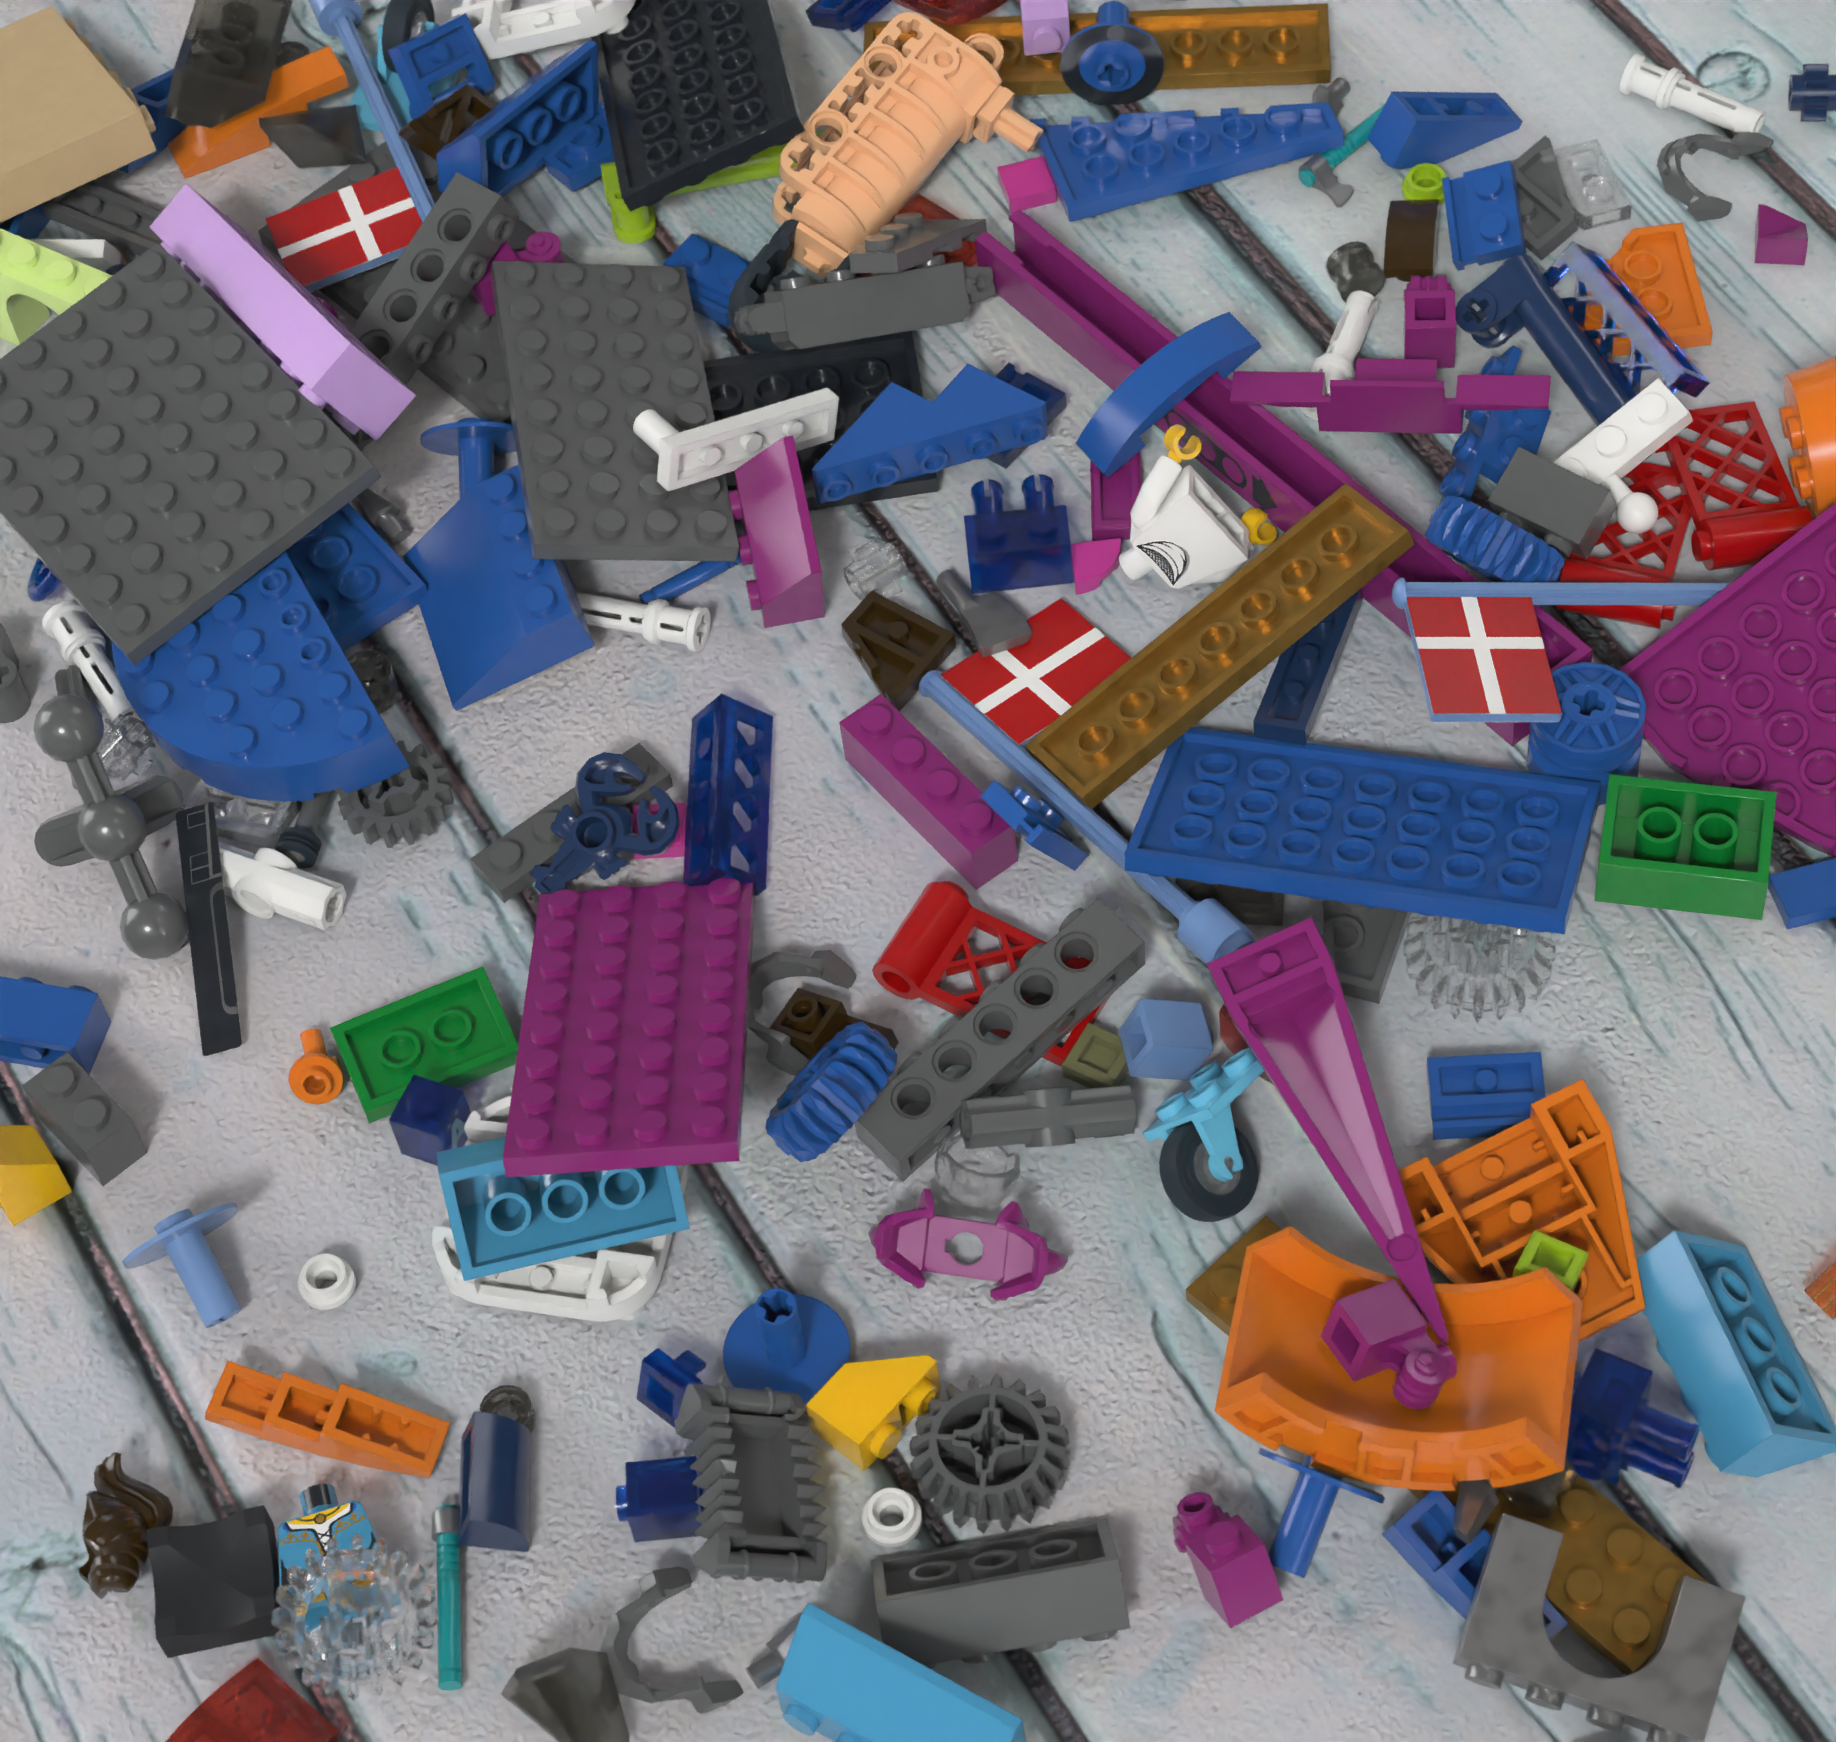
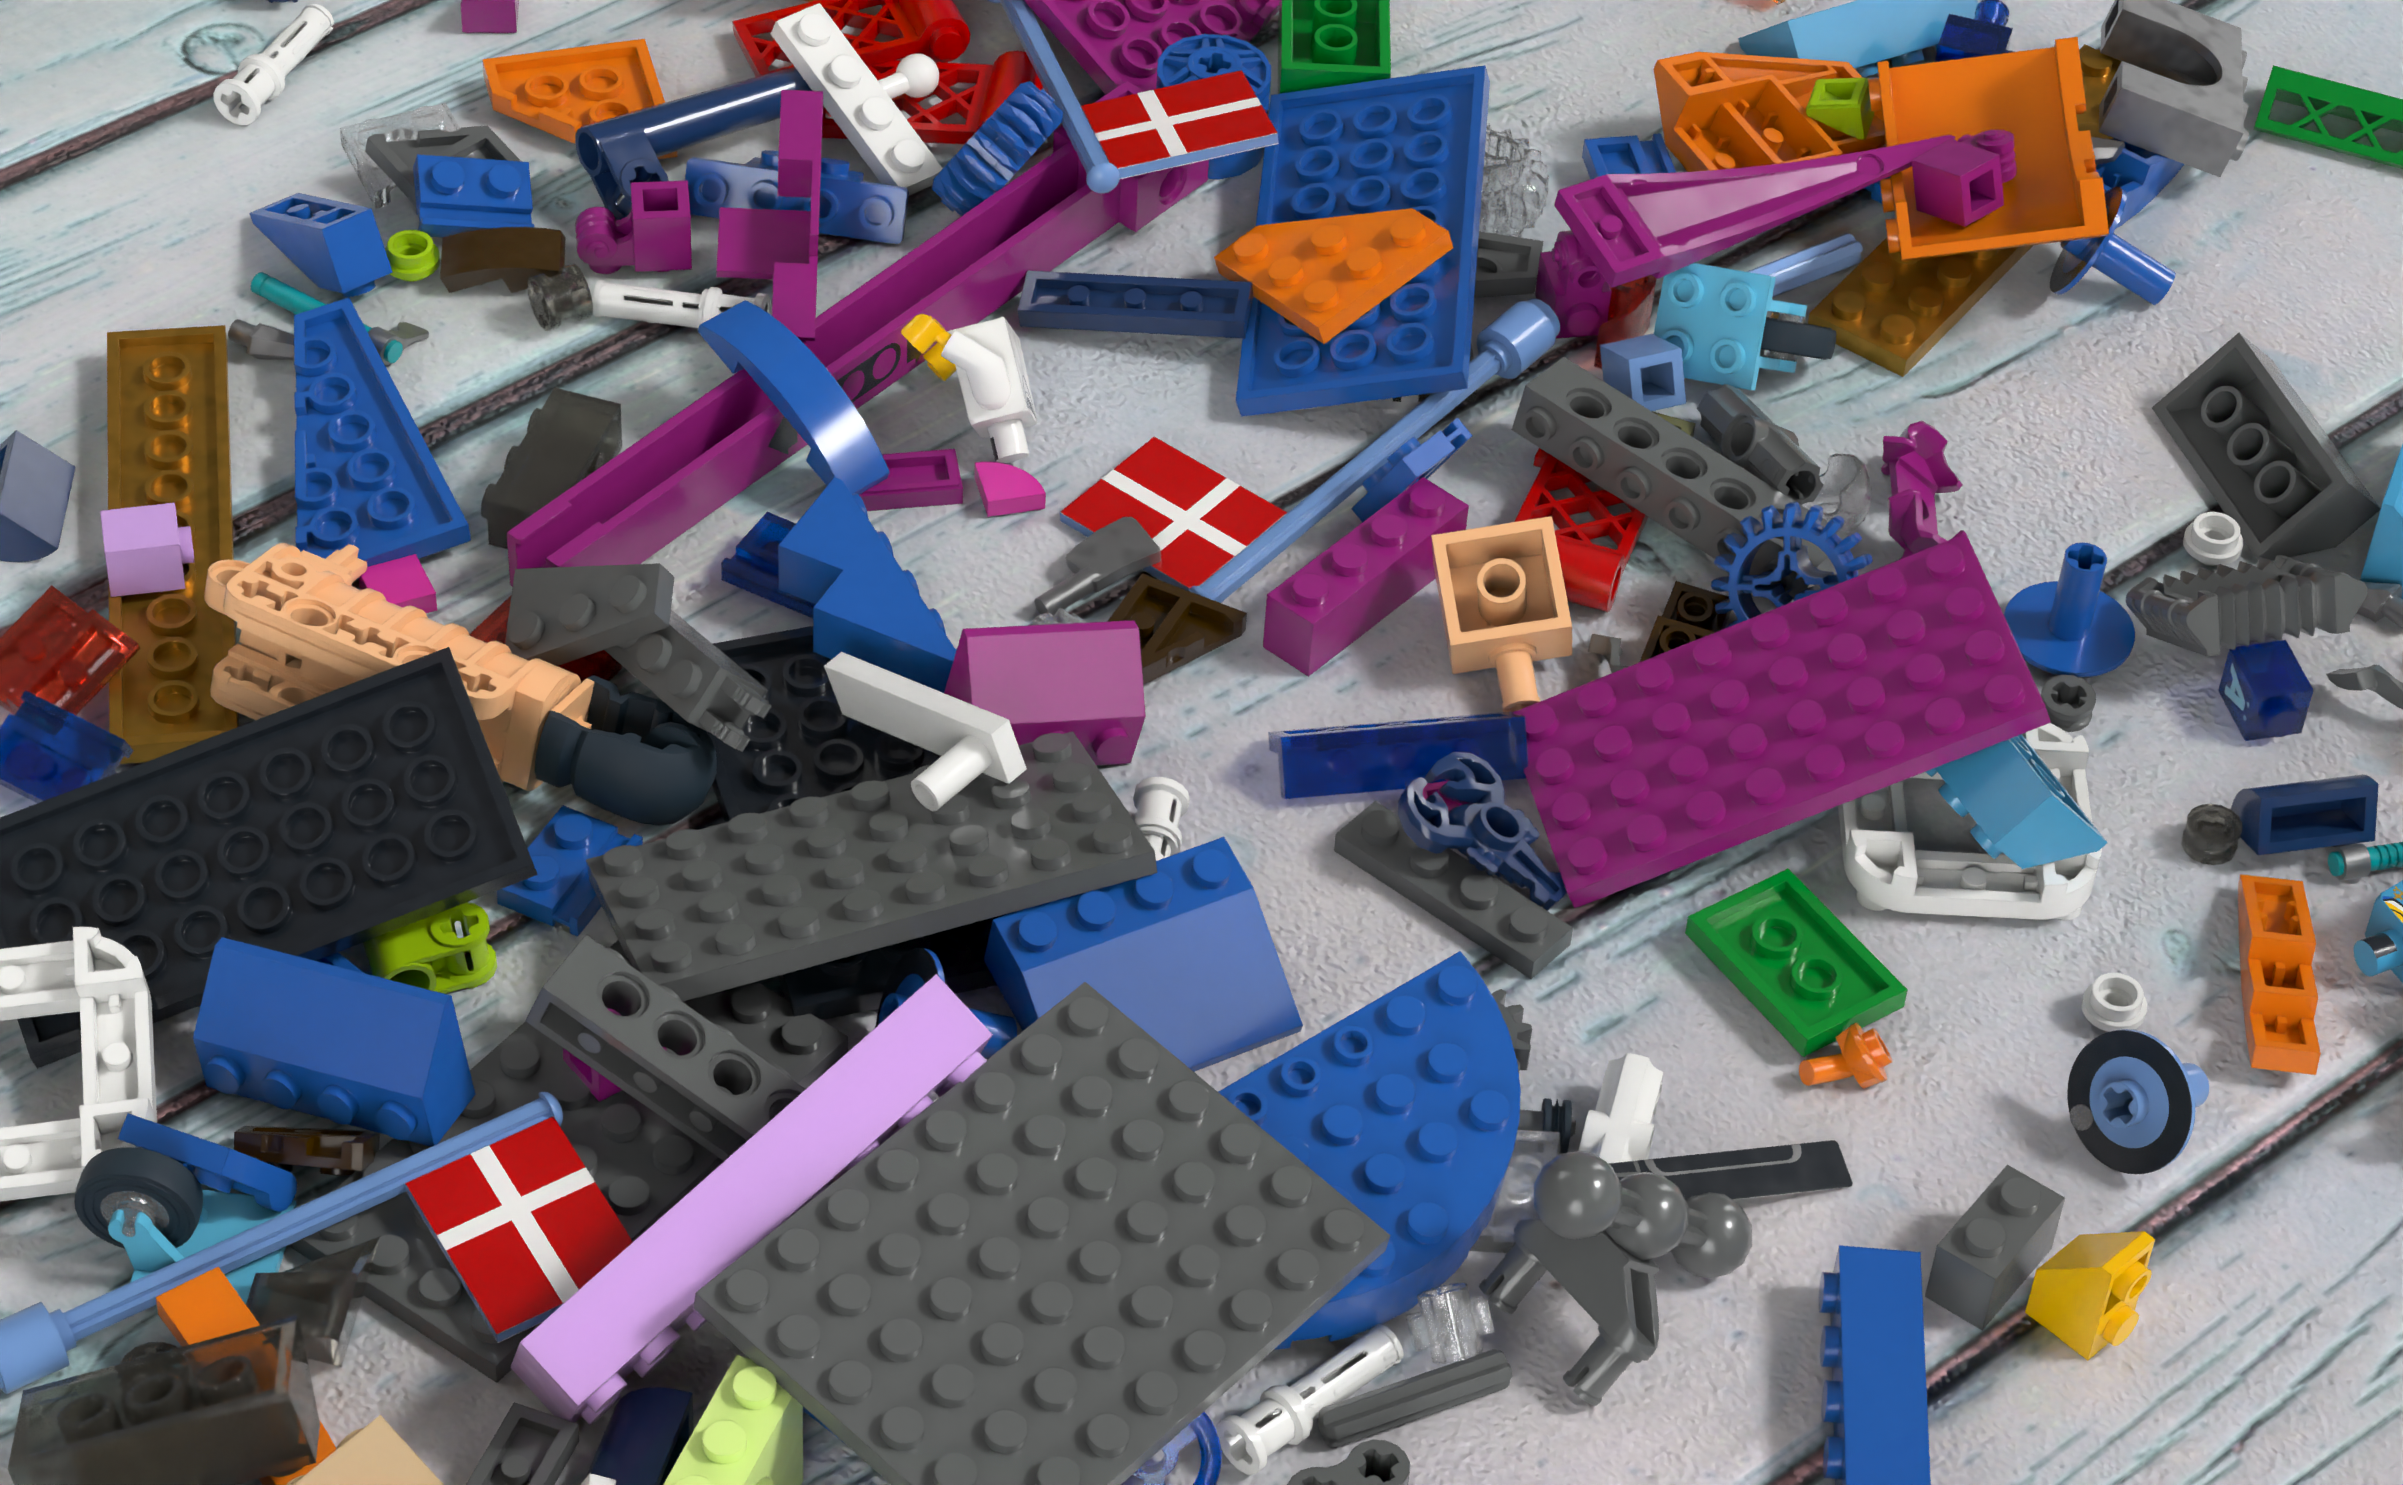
camera: 110 degrees left, 10 degrees down
(429, 1119) = (1905, 926): clear blue brick -> none
(665, 1381) = (2145, 699): clear blue tile -> none
(712, 1330) = (2069, 690): none -> dark grey bush
(852, 868) = (1503, 602): none -> light nougat brick
(871, 1404) = (2131, 546): yellow slope -> none
(946, 1442) = (2129, 471): dark grey gear -> none
(1017, 545) = (1007, 530): clear blue brick -> none
(1112, 59) = (204, 489): piece -> none
(1147, 267) = (561, 448): none -> clear smoke brick
(1219, 645) = (1158, 336): pearl gold plate -> none
(1226, 1559) = (2184, 300): magenta brick -> none
(1308, 785) = (1333, 267): none -> orange plate
(1335, 1209) = (1812, 263): none -> light blue axle
(1553, 503) = (931, 114): dark grey brick -> none
(1631, 316) = (654, 70): clear blue fence -> none
(1677, 184) = (392, 76): dark grey helmet -> none

